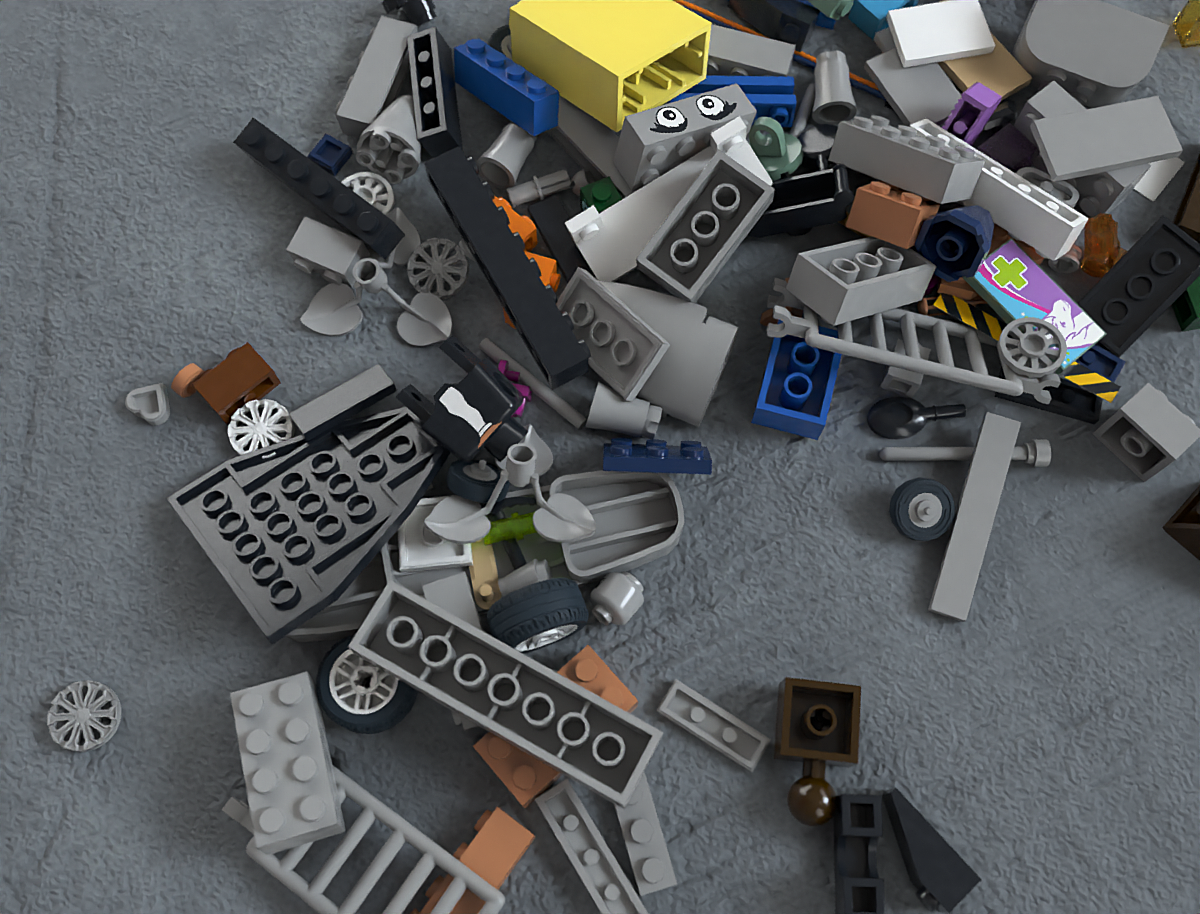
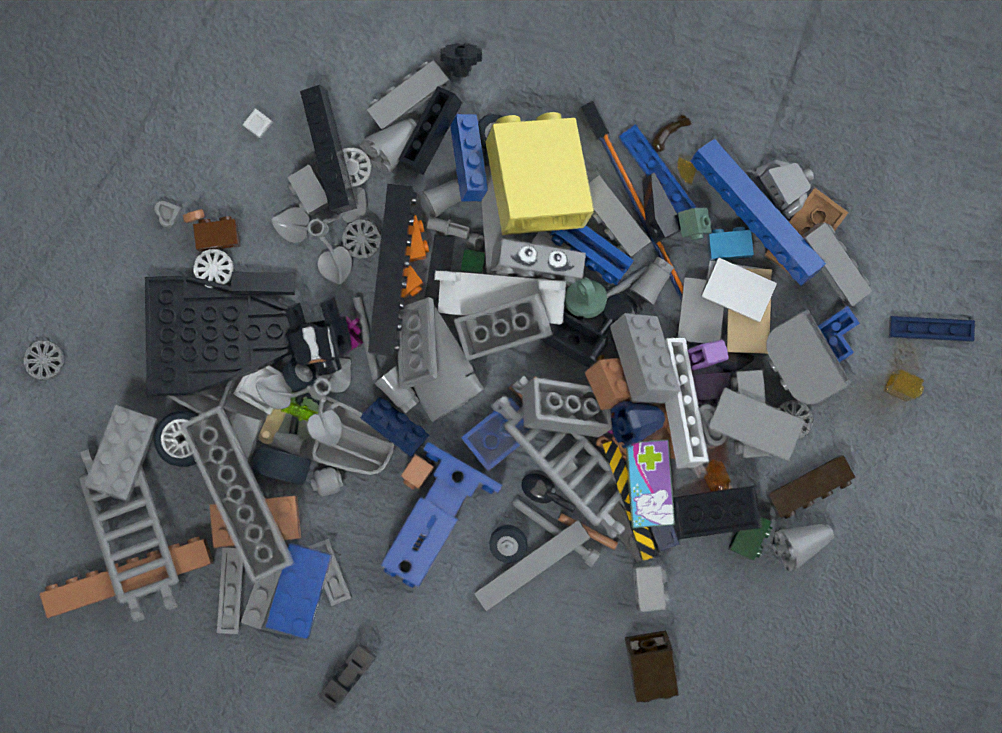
camera: 35 degrees right, 15 degrees up
(204, 224) = (257, 123): none -> white tile
(330, 154) = (351, 125): dark blue tile -> none
(697, 784) = (299, 591): none -> blue brick
(732, 495) = (416, 473): none -> nougat brick
(802, 536) = (433, 517): none -> brick
(836, 744) = (347, 637): dark brown brick -> none
(930, 861) = (379, 706): black slope -> none
(1027, 423) = (592, 533): none -> nougat bar
(1032, 347) = (622, 505): light grey wheel -> none
(1158, 177) = (801, 454): white sticker -> none

